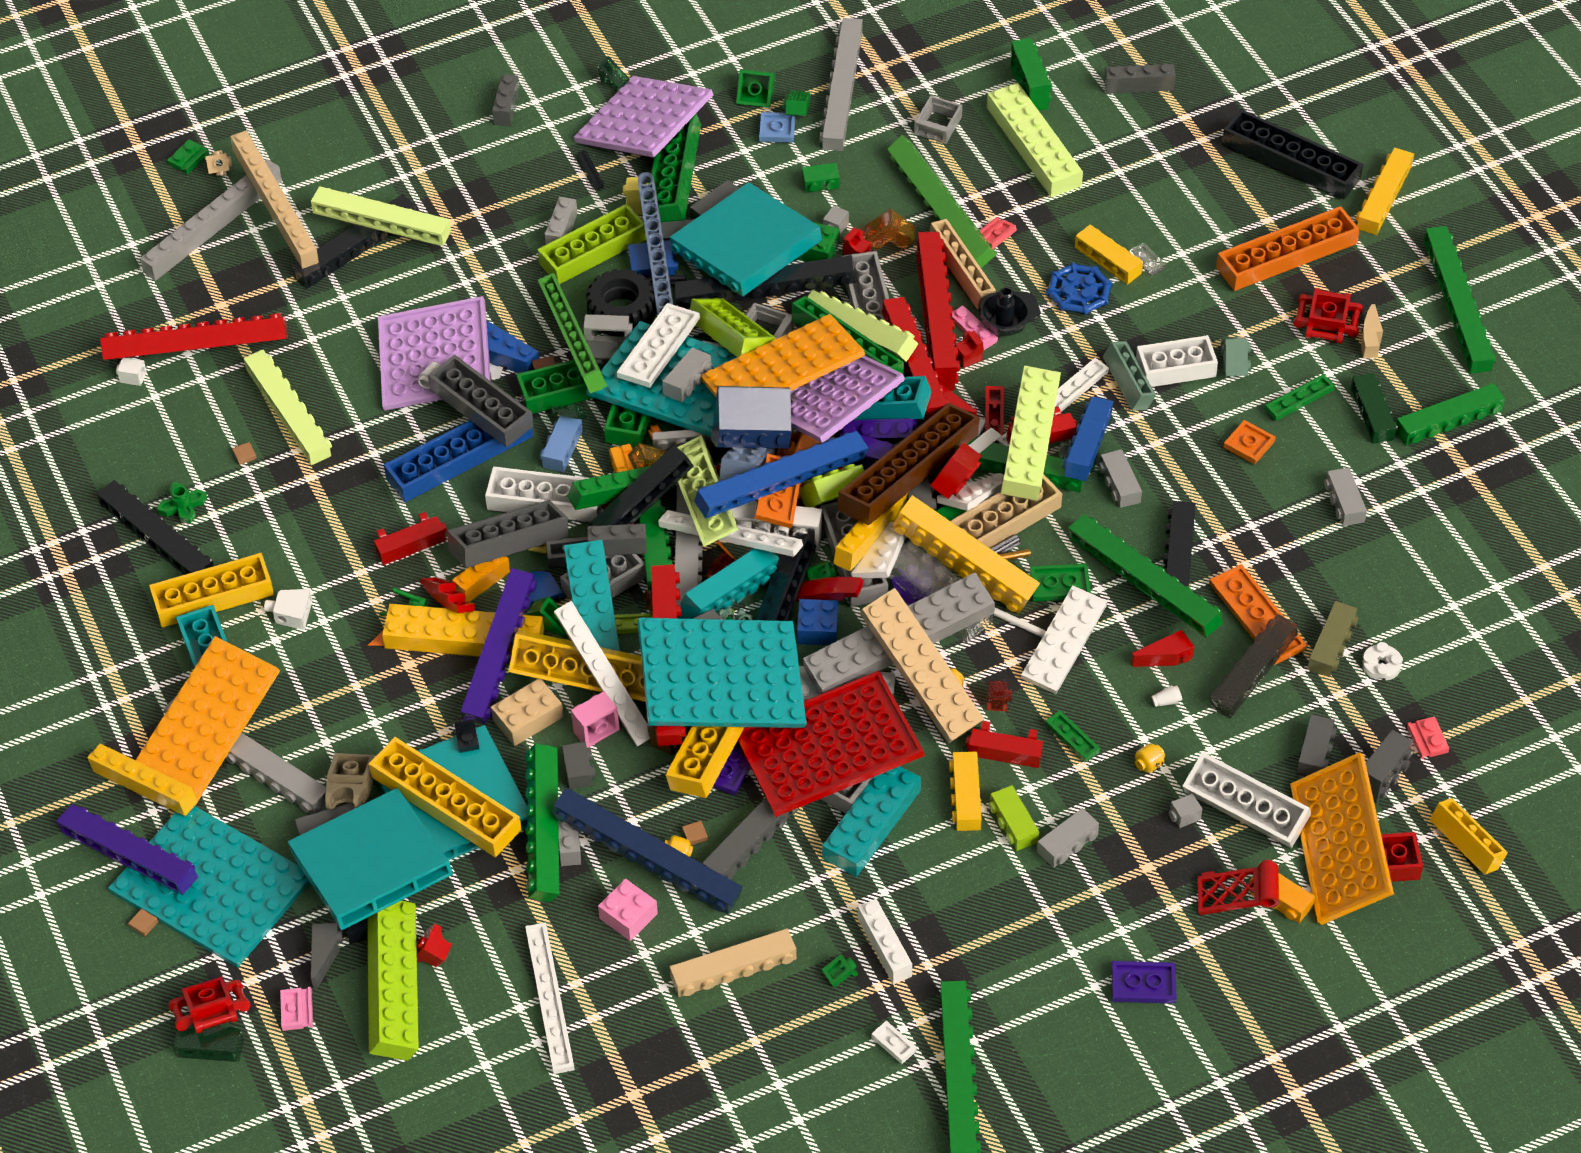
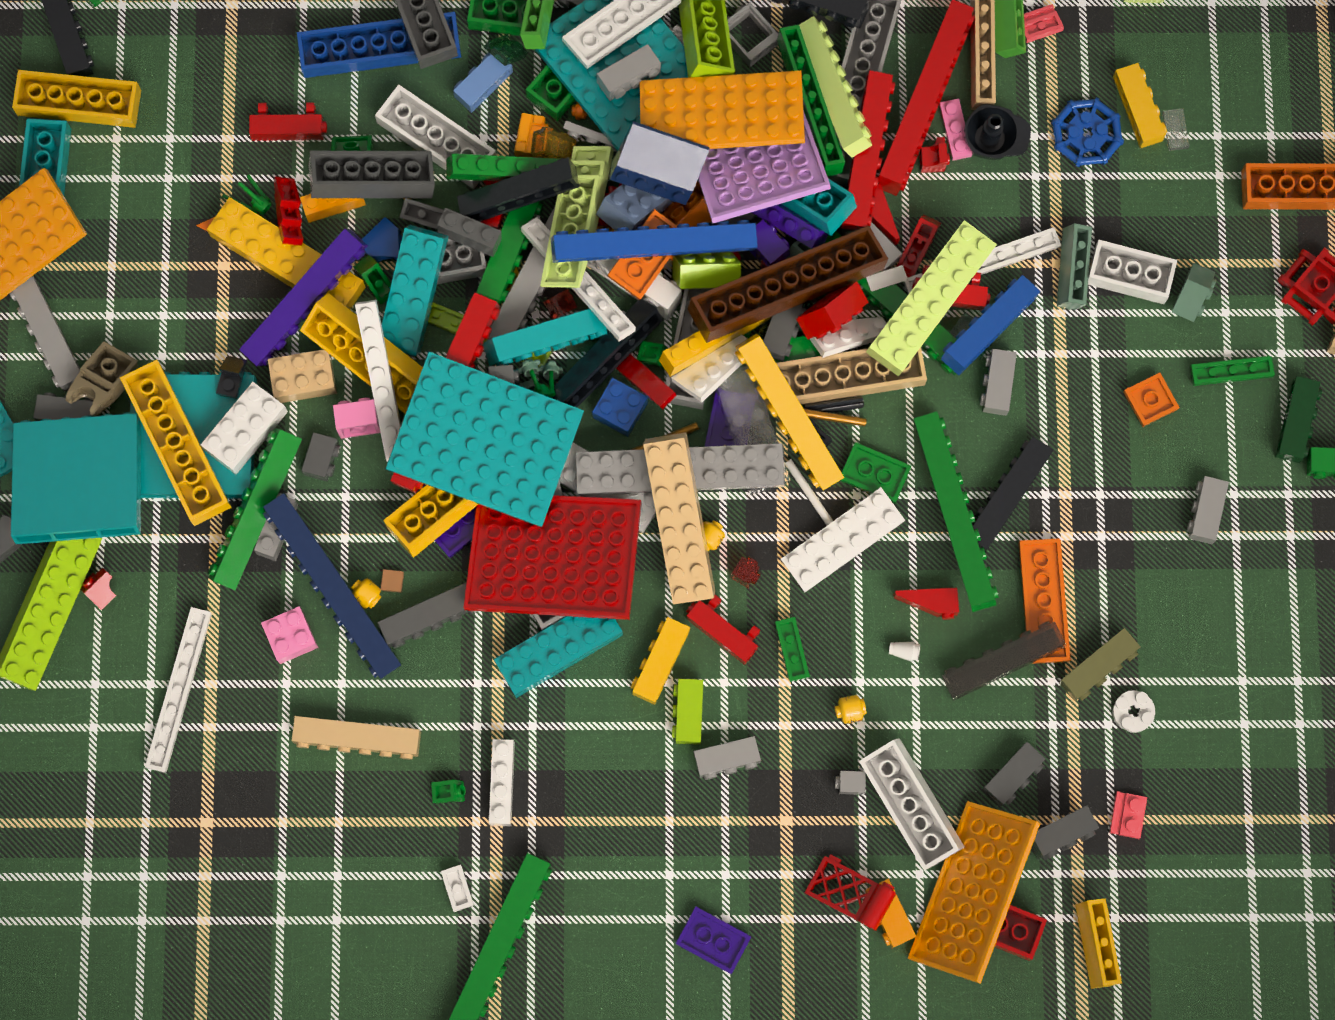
camera: 25 degrees right, 25 degrees up
(291, 607) = (142, 152): white torso -> none
(501, 760) = (244, 428): none -> white brick

